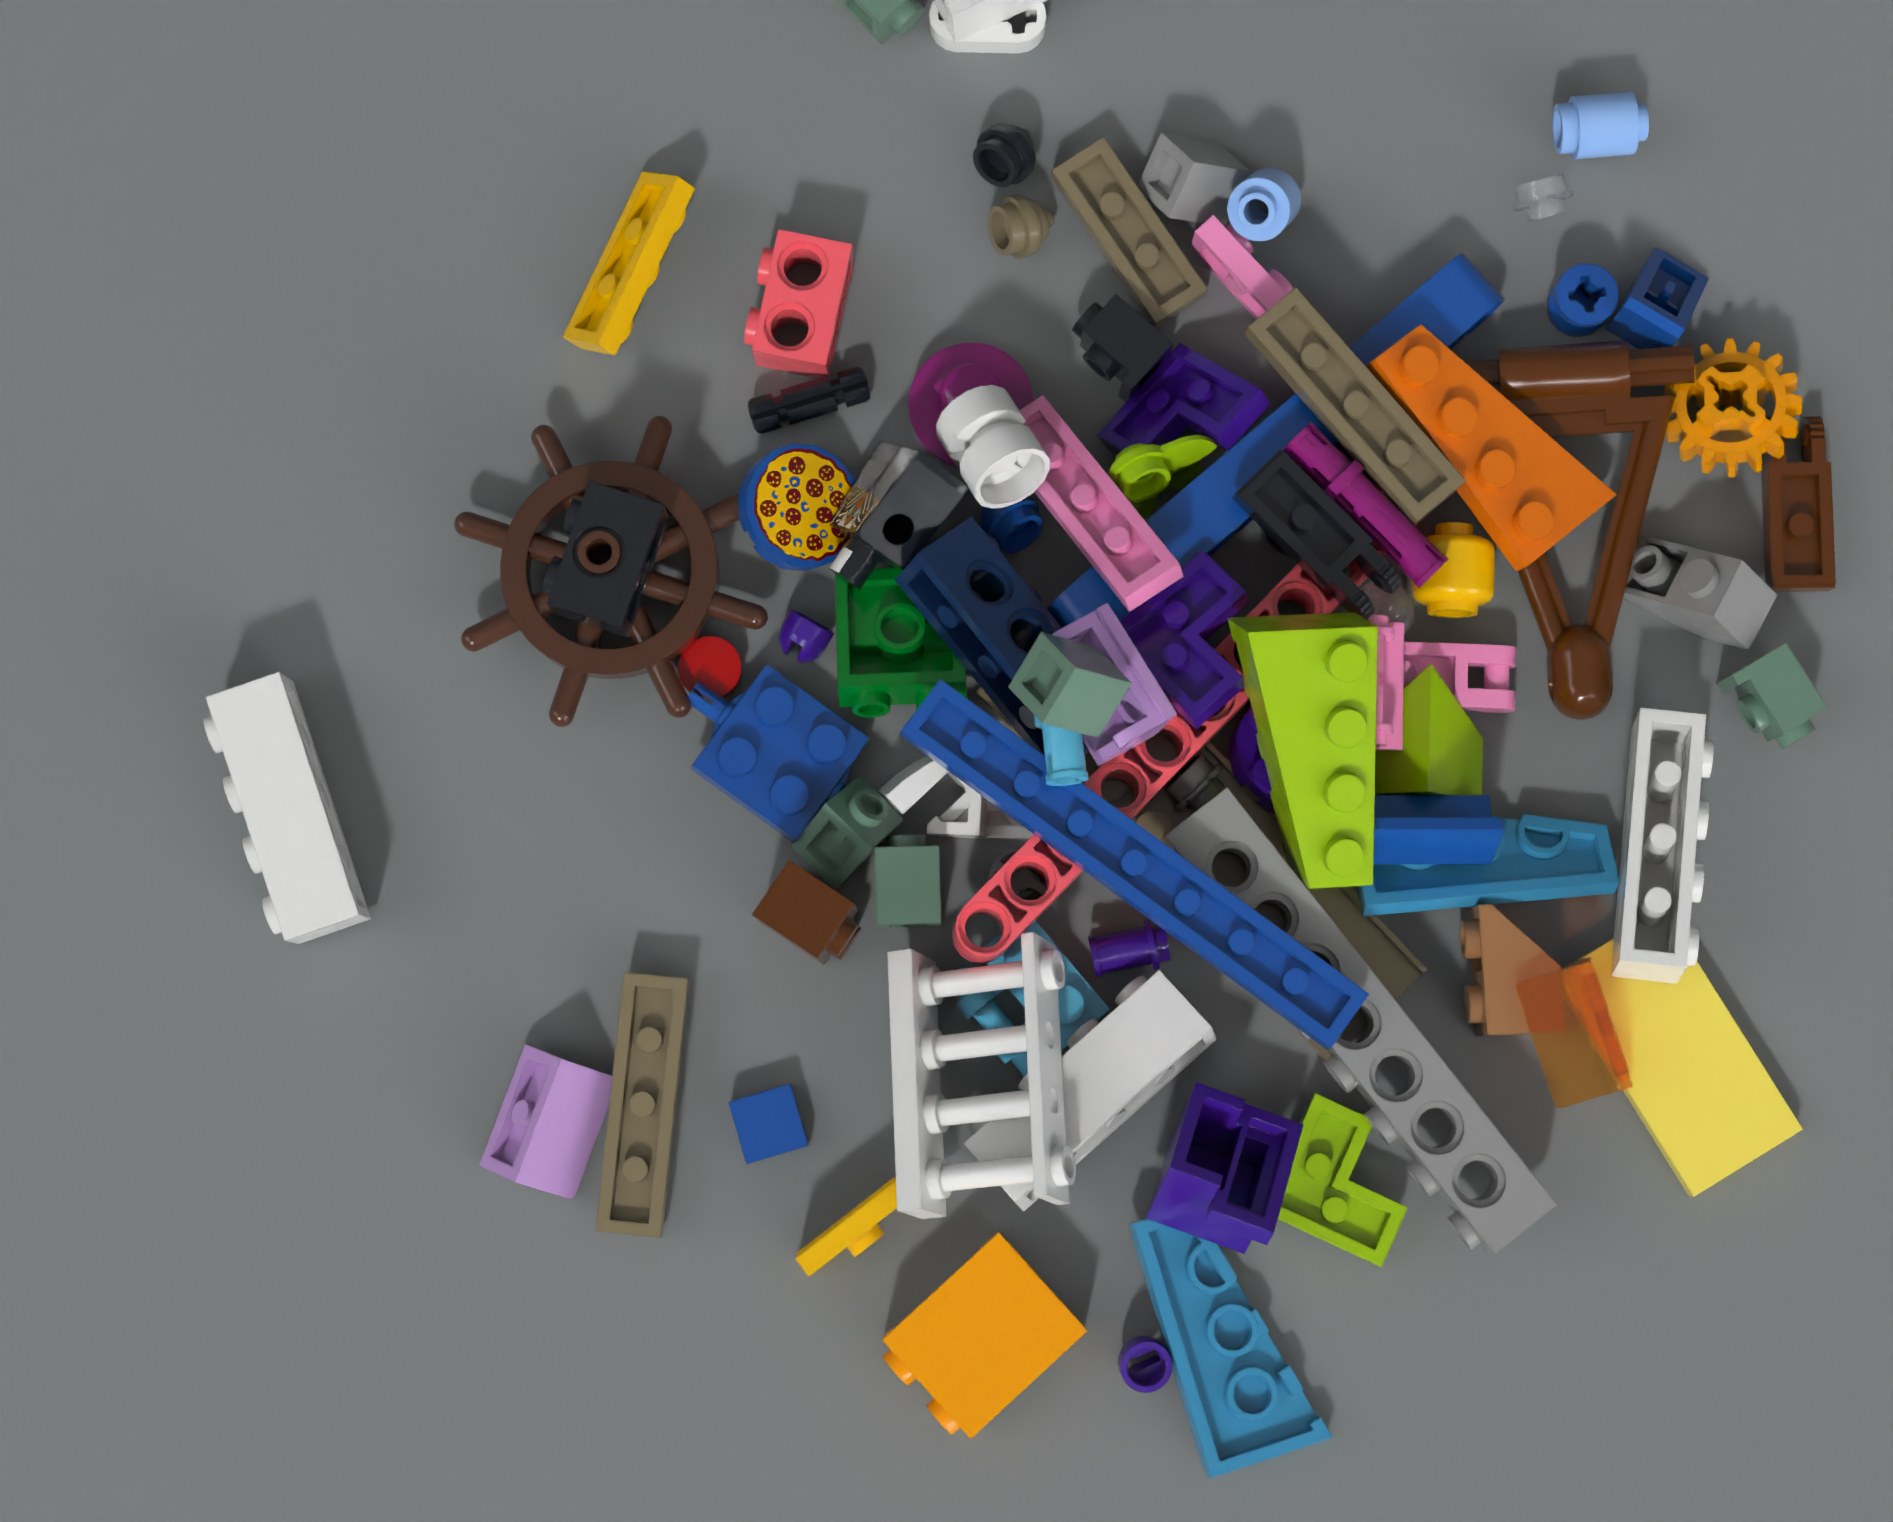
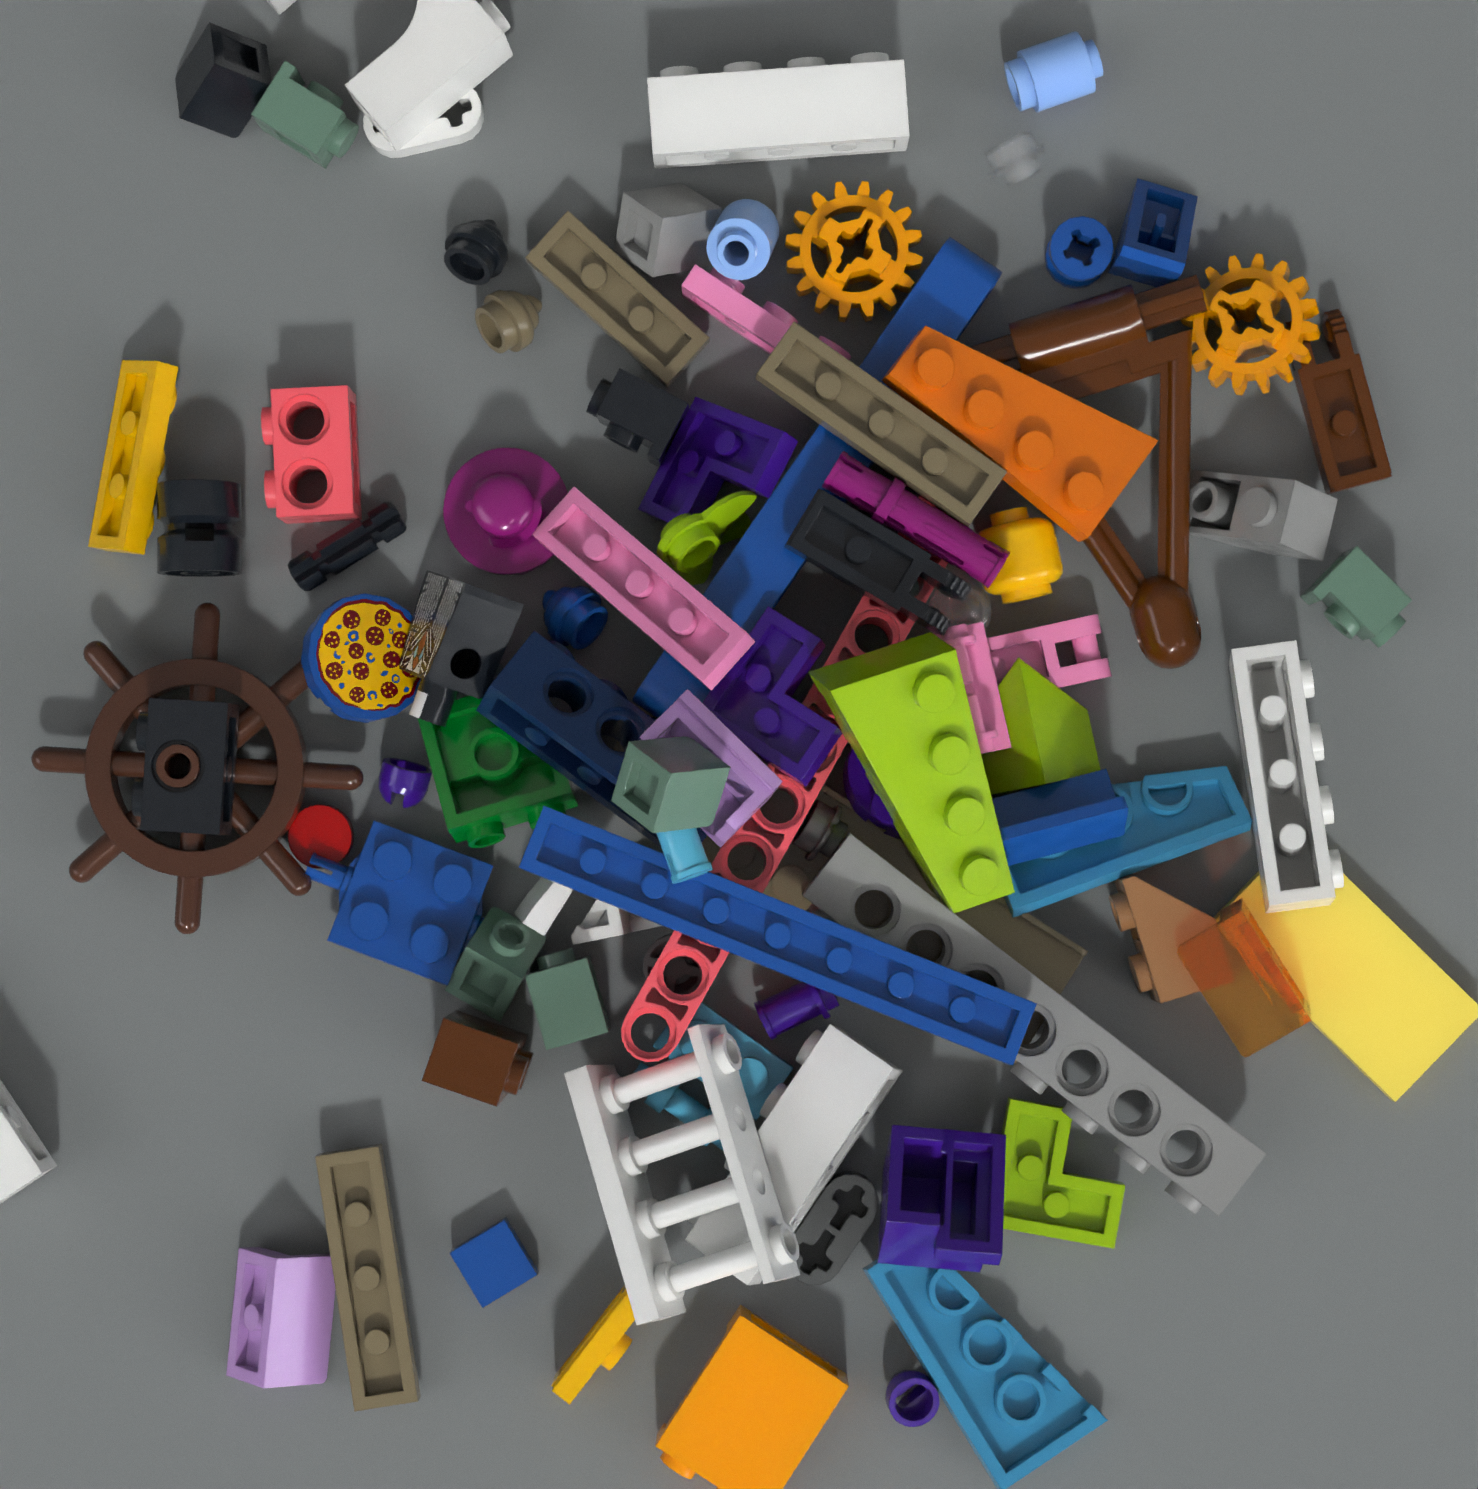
camera: 15 degrees left, 5 degrees up
(681, 324) = (199, 506): none -> black wheel
(992, 446) = (536, 559): white wheel -> none
(1122, 1185) = (844, 1236): none -> dark grey beam
(1328, 95) = (778, 111): none -> white brick
(1380, 264) = (829, 236): none -> light orange gear

